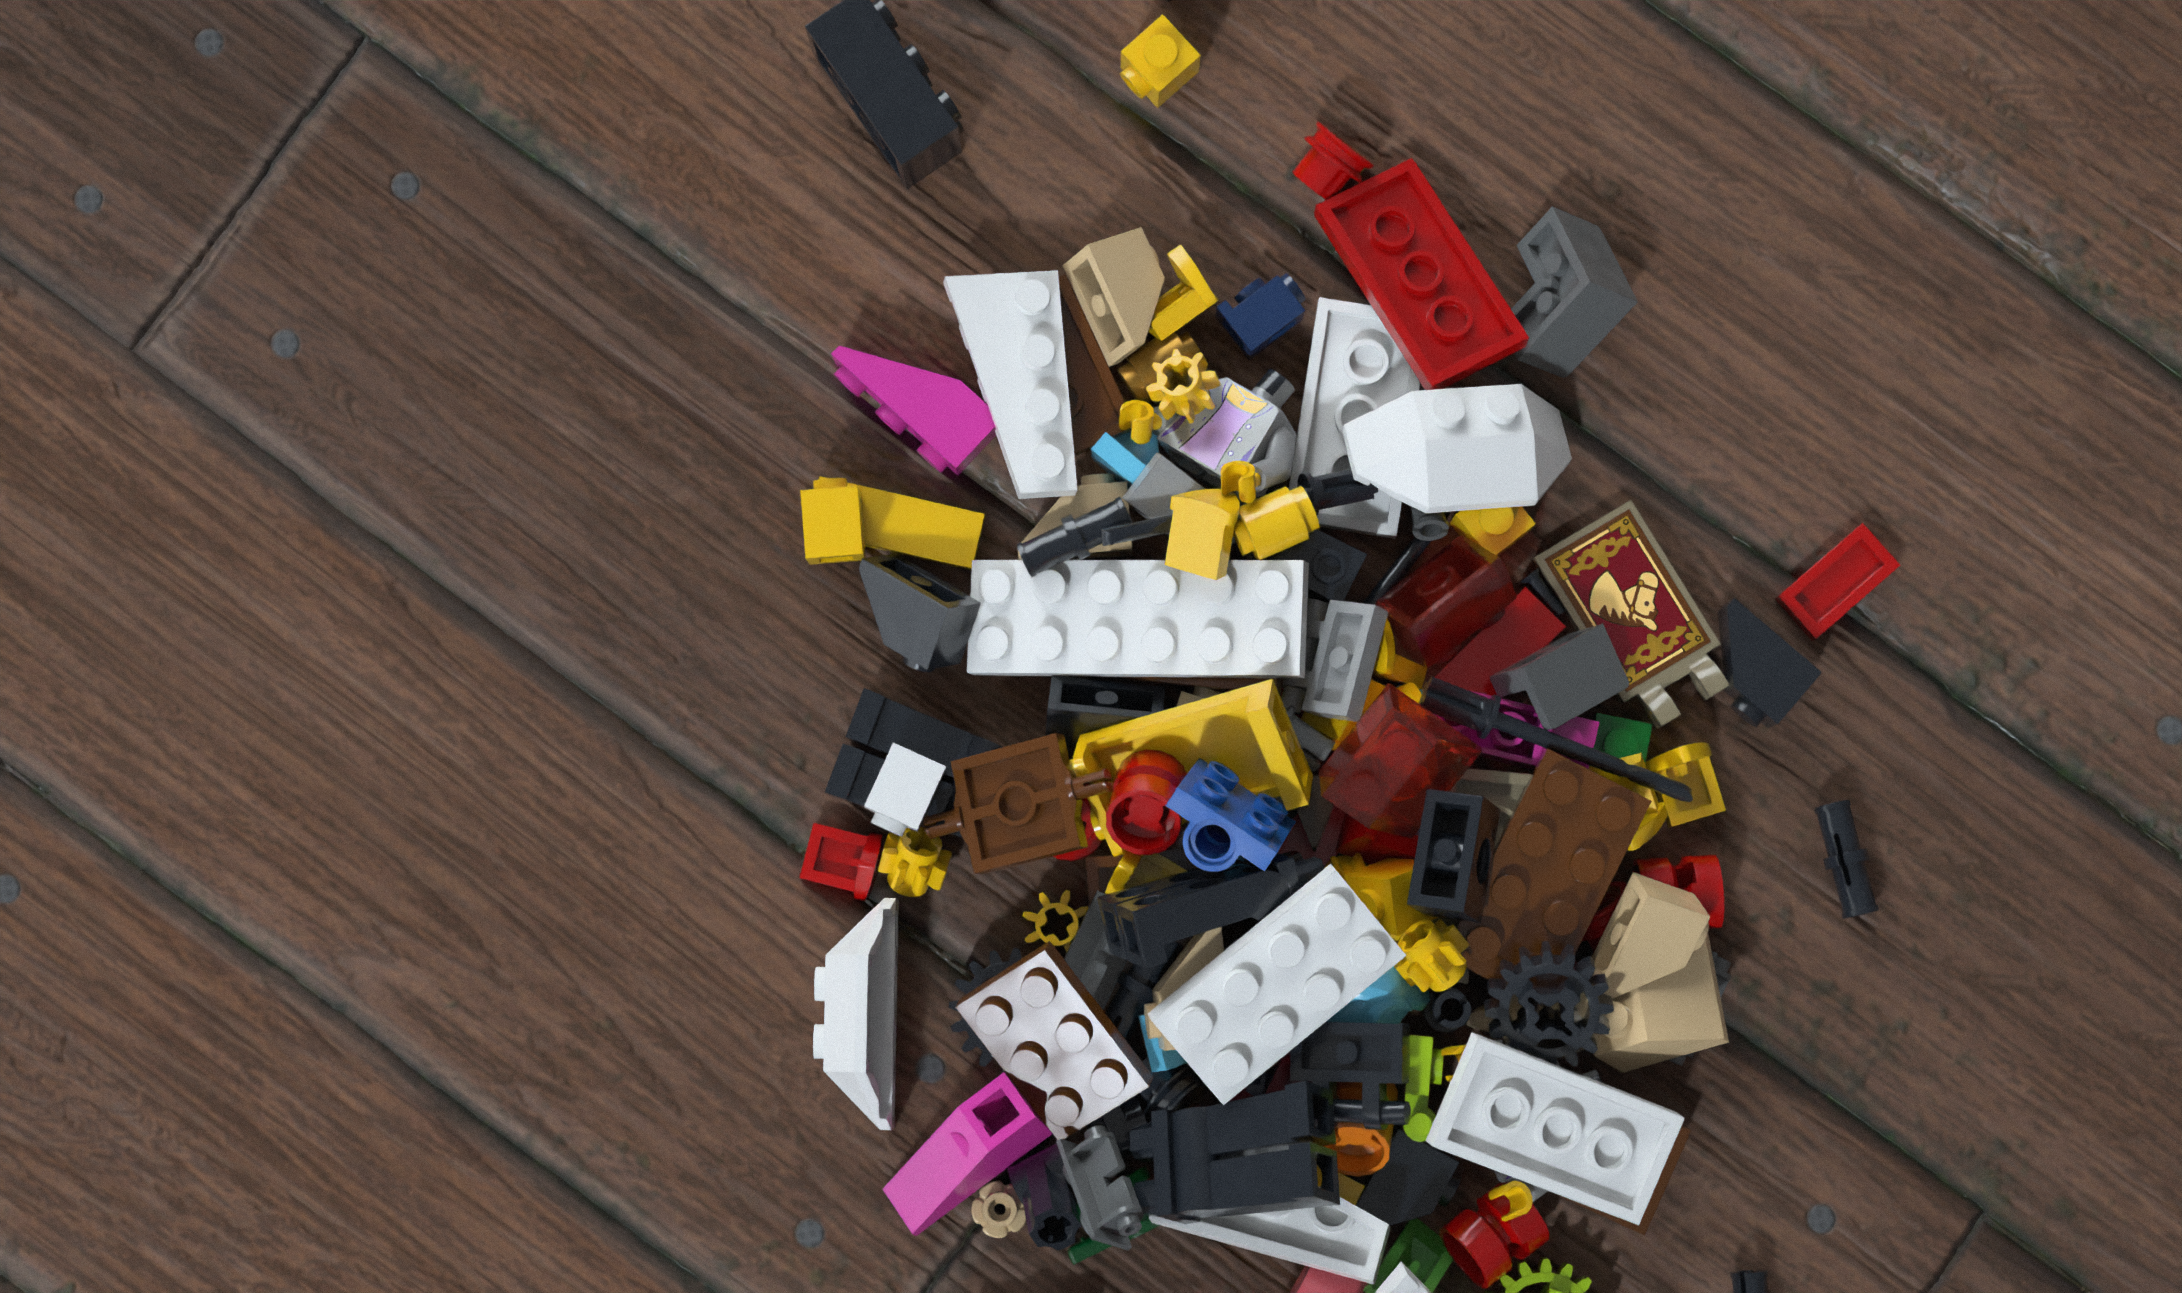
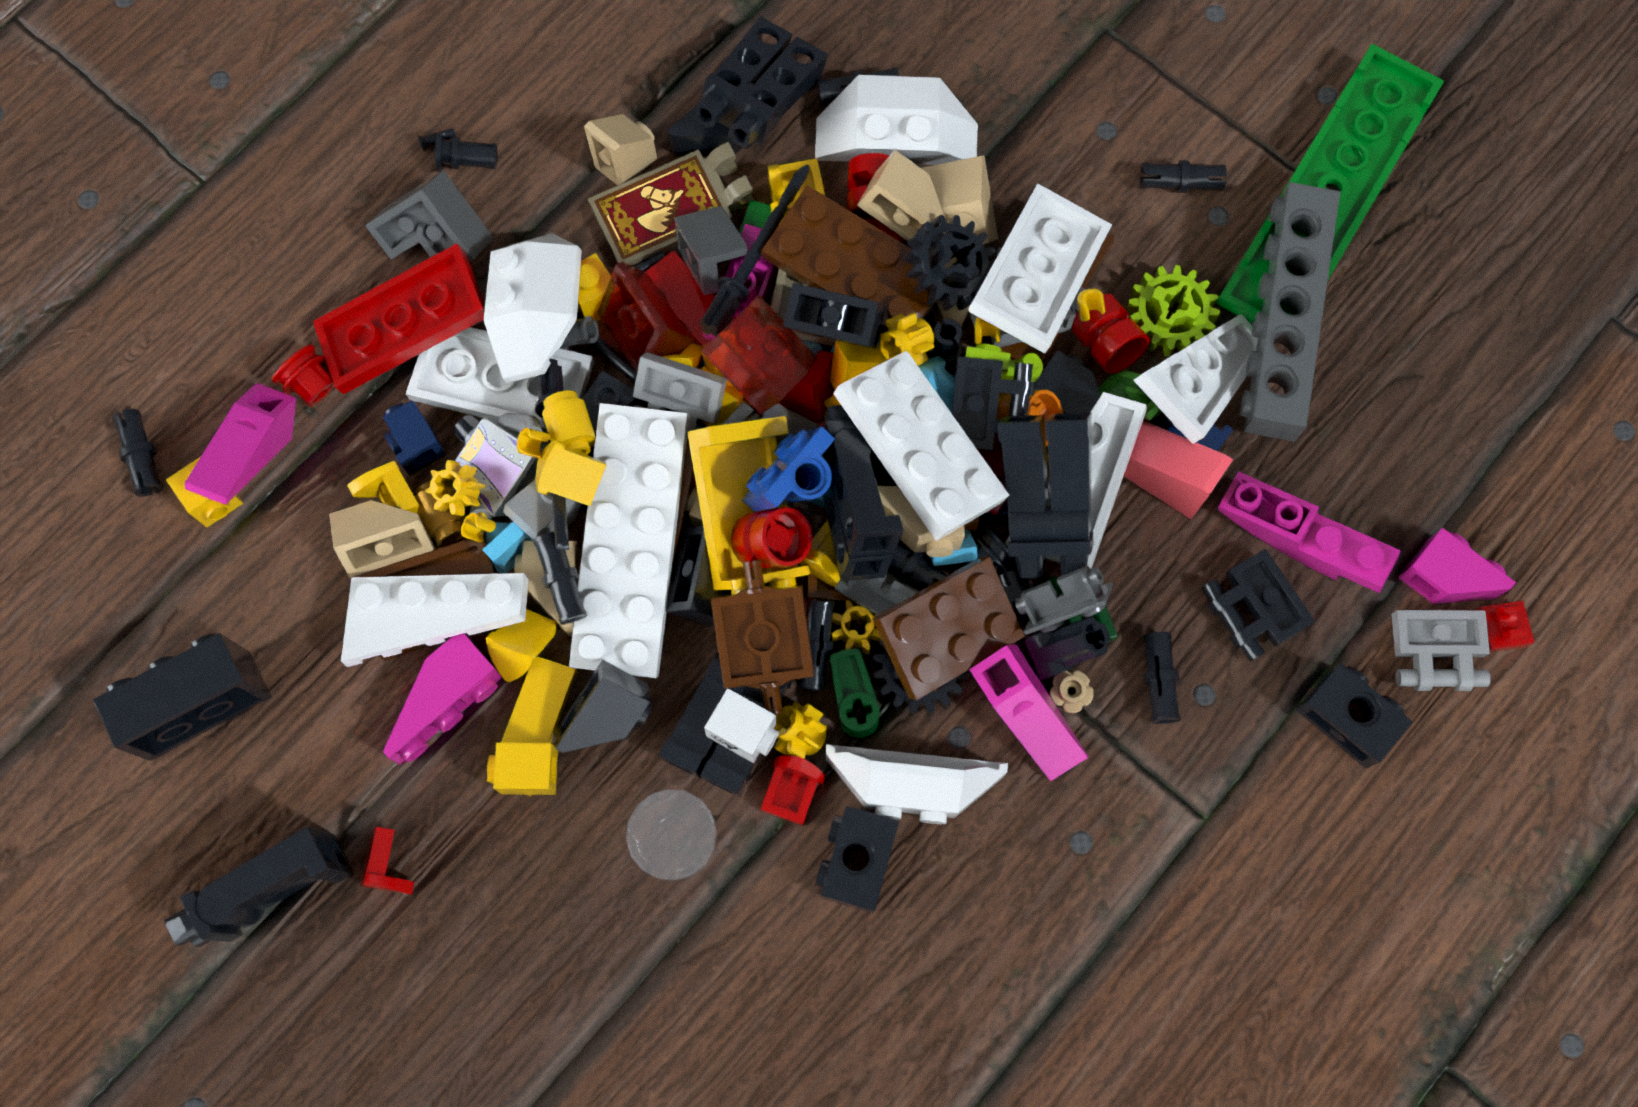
camera: 85 degrees left, 10 degrees down
(644, 201) = (244, 893): none -> black hips
(706, 357) = (376, 864): none -> red tile
(725, 958) = (876, 837): none -> black brick
(773, 715) = (671, 835): none -> clear tile
(977, 926) = (853, 691): none -> dark green piece
(989, 494) = (518, 645): none -> yellow tile
(1047, 874) = (819, 622): none -> black pin
(1218, 104) = (244, 443): none -> dark pink slope
(1681, 321) = (464, 153): none -> black pin
(1706, 278) = (431, 139): none -> black piece
(1708, 539) = (620, 147): none -> tan slope
(1772, 718) = (759, 83): none -> black hips
(1788, 918) = (896, 114): none -> white wedge
(1837, 582) = (664, 75): red tile -> none

